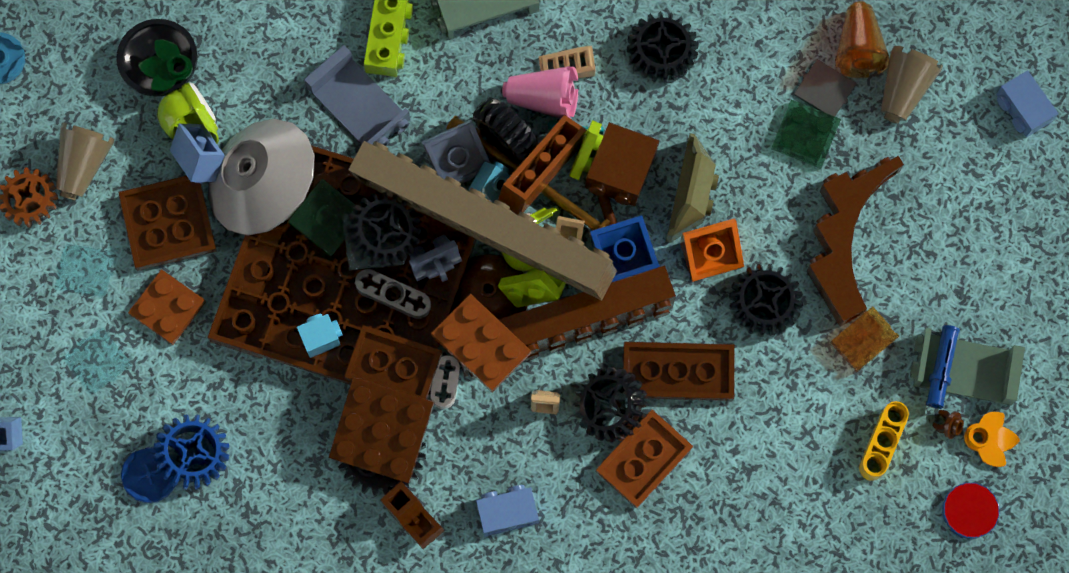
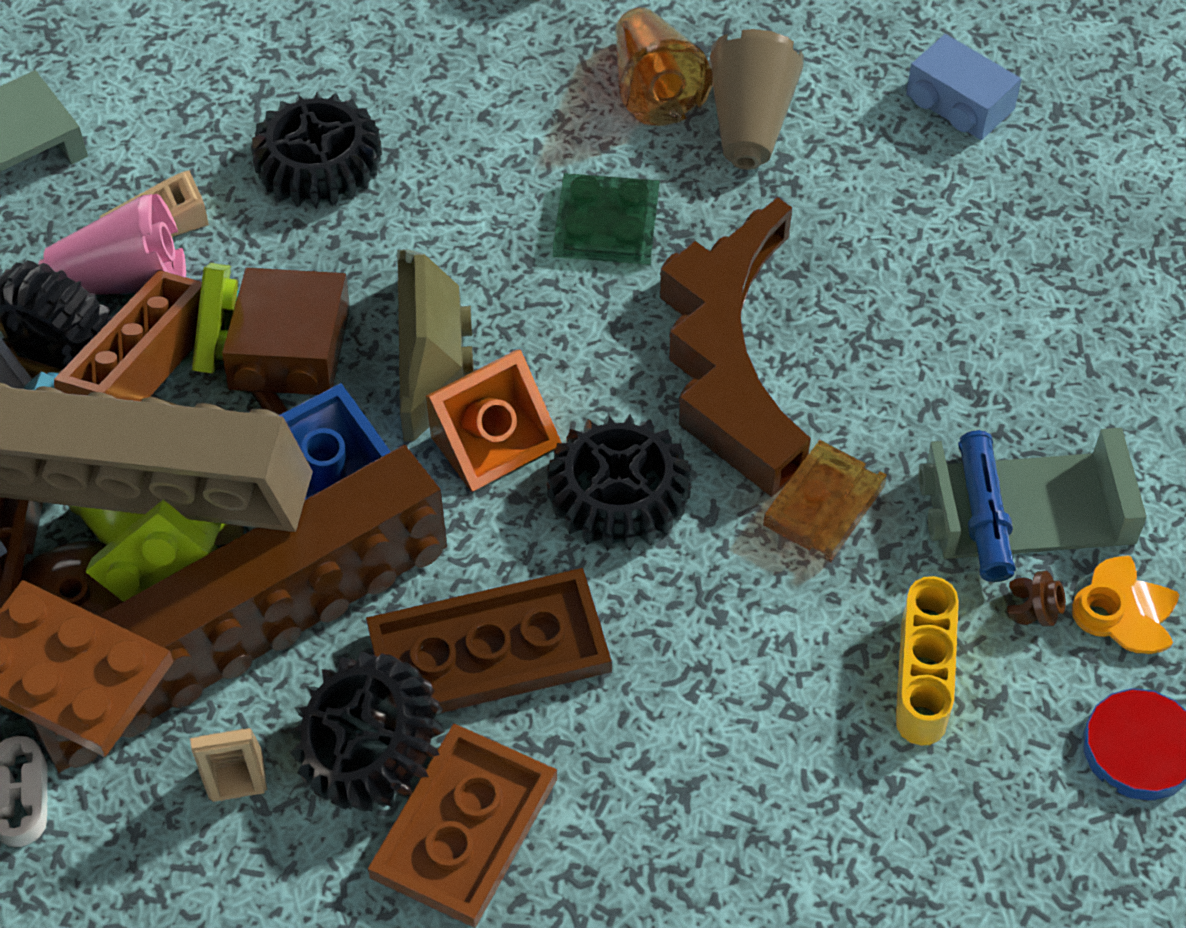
camera: 15 degrees left, 20 degrees down
(825, 88) = (617, 148): dark grey piece -> none

